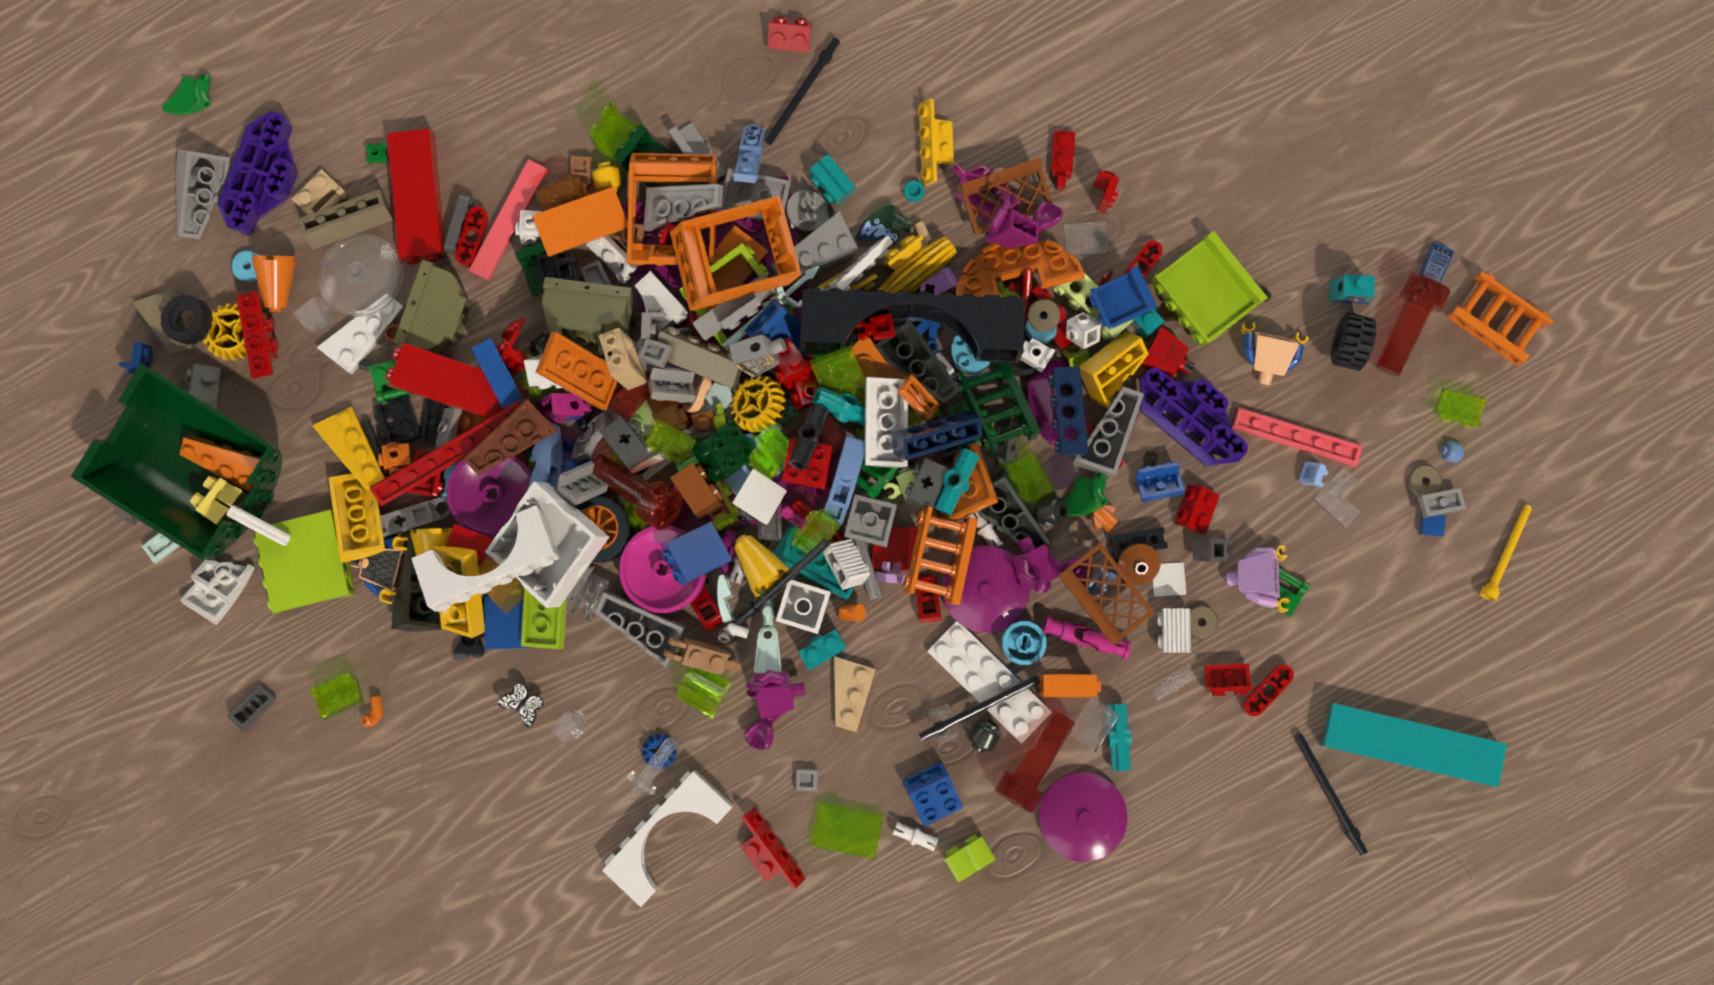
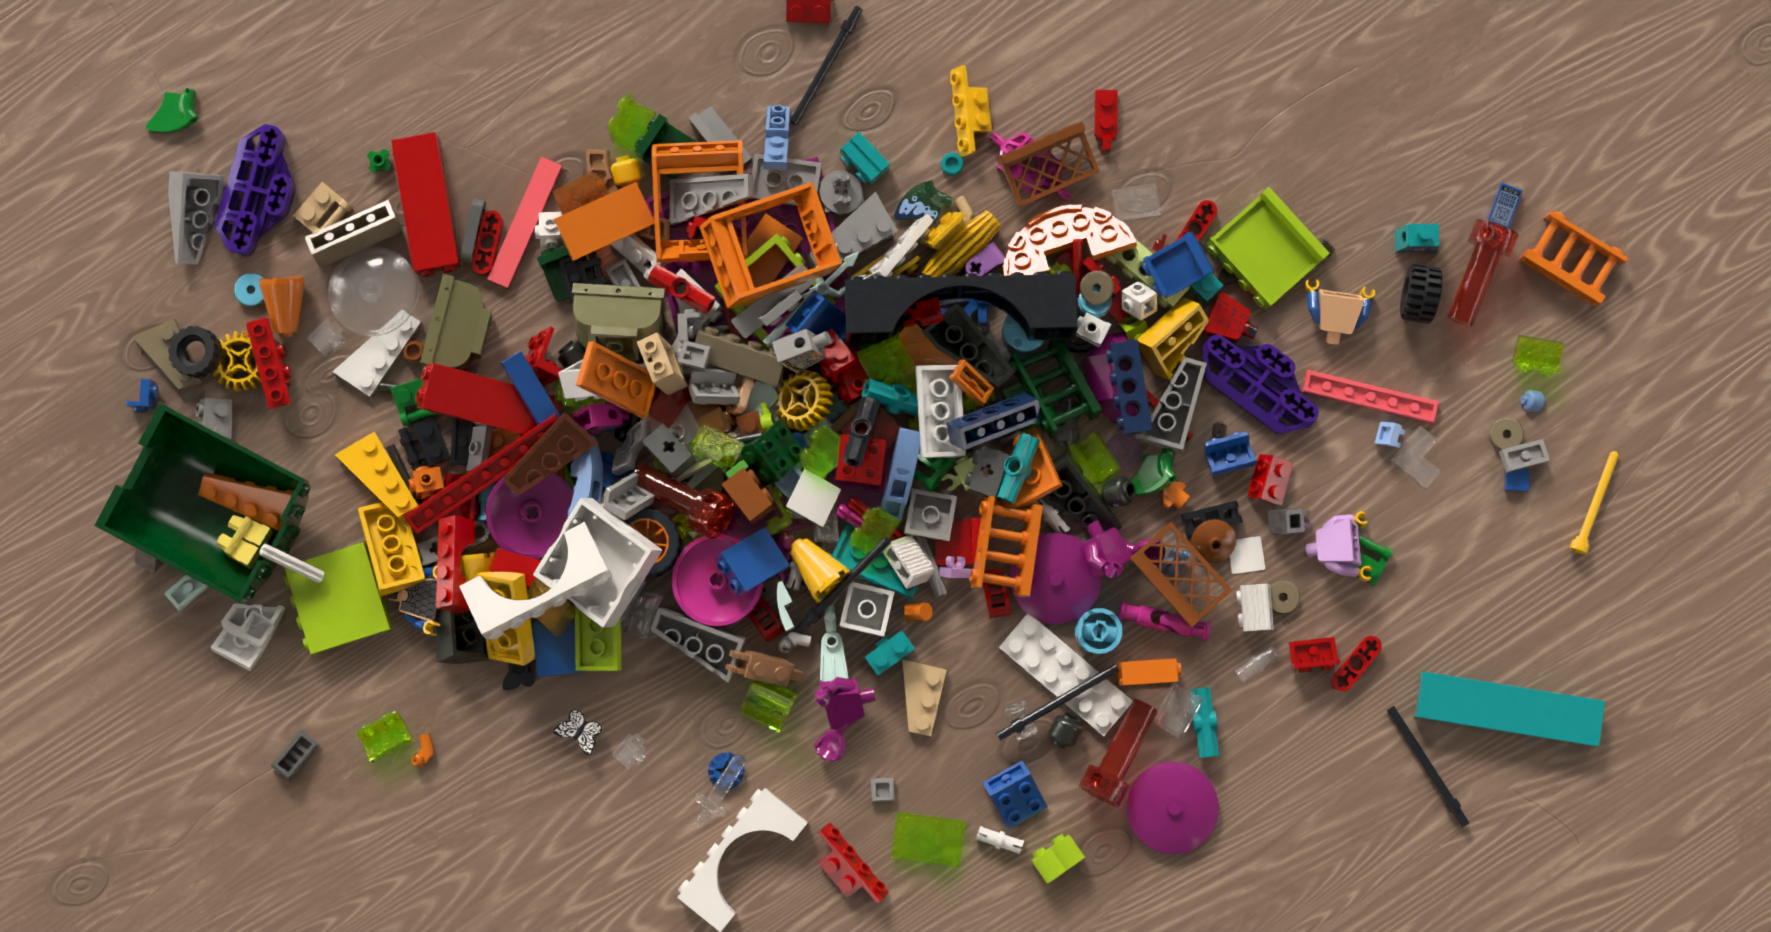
camera: 10 degrees left, 0 degrees up
(414, 510) = (453, 537): none -> red arch
(658, 296) = (693, 295): none -> red piece
(1017, 230) = (1062, 200): magenta torso -> none
(1106, 182) = (1154, 142): red bracket -> none

